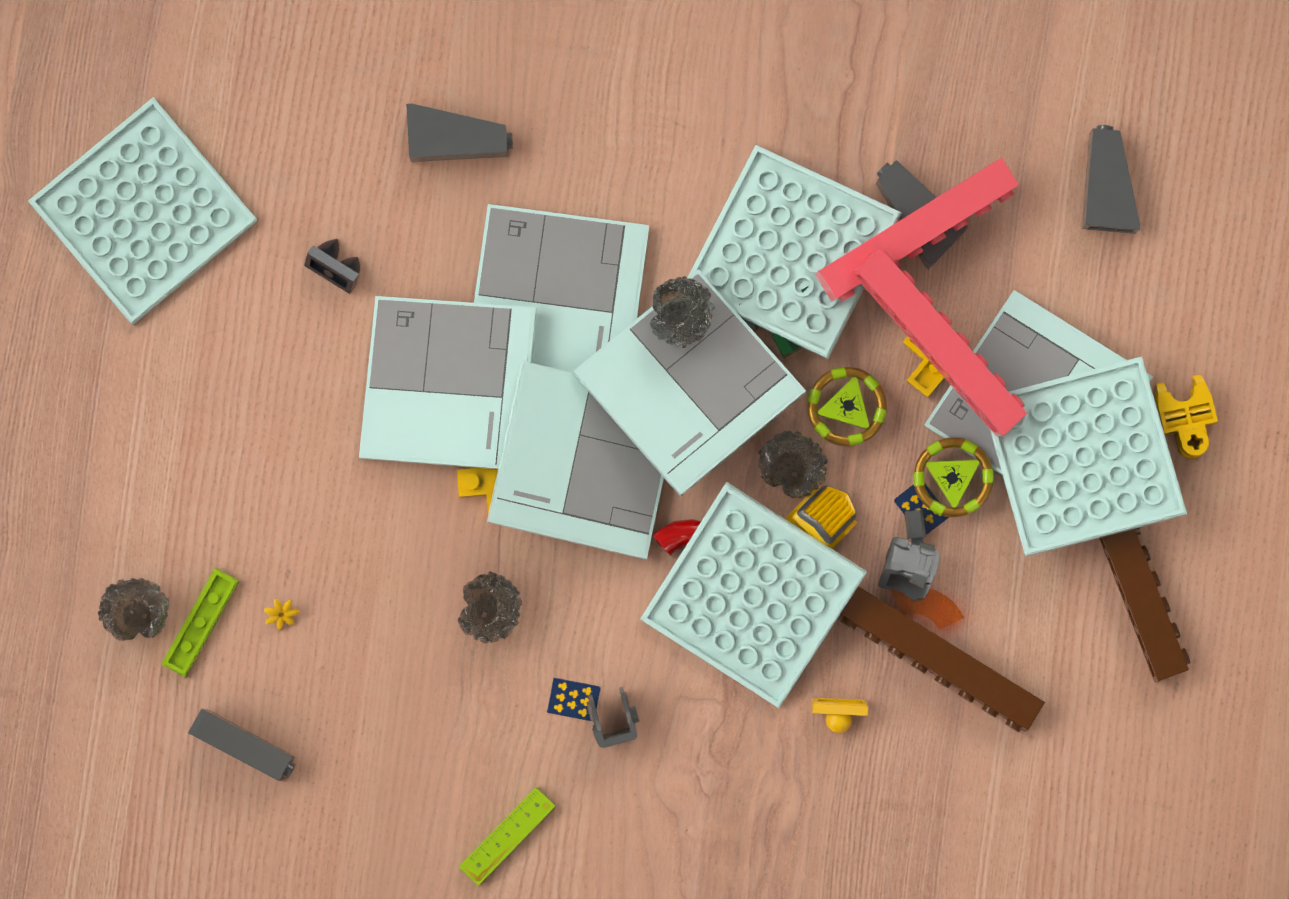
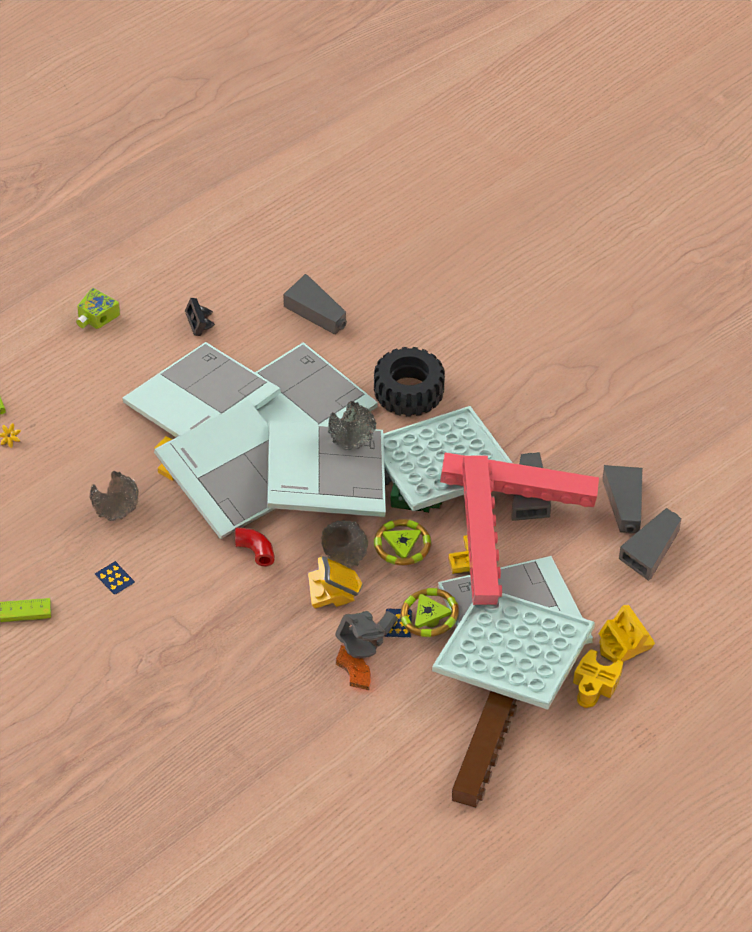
camera: 40 degrees right, 35 degrees down
(143, 211) = (131, 243): light aqua tile -> none
(205, 354) = (97, 309): none -> lime torso
(618, 736) = (120, 603): dark grey piece -> none
(658, 135) = (409, 398): none -> black tyre
(753, 595) = (260, 586): light aqua tile -> none
(839, 711) = (251, 679): yellow tile -> none
(942, 659) = (336, 696): reddish brown brick -> none
(1030, 140) = (625, 495): none -> dark grey slope
(1179, 342) = (624, 636): none -> yellow piece

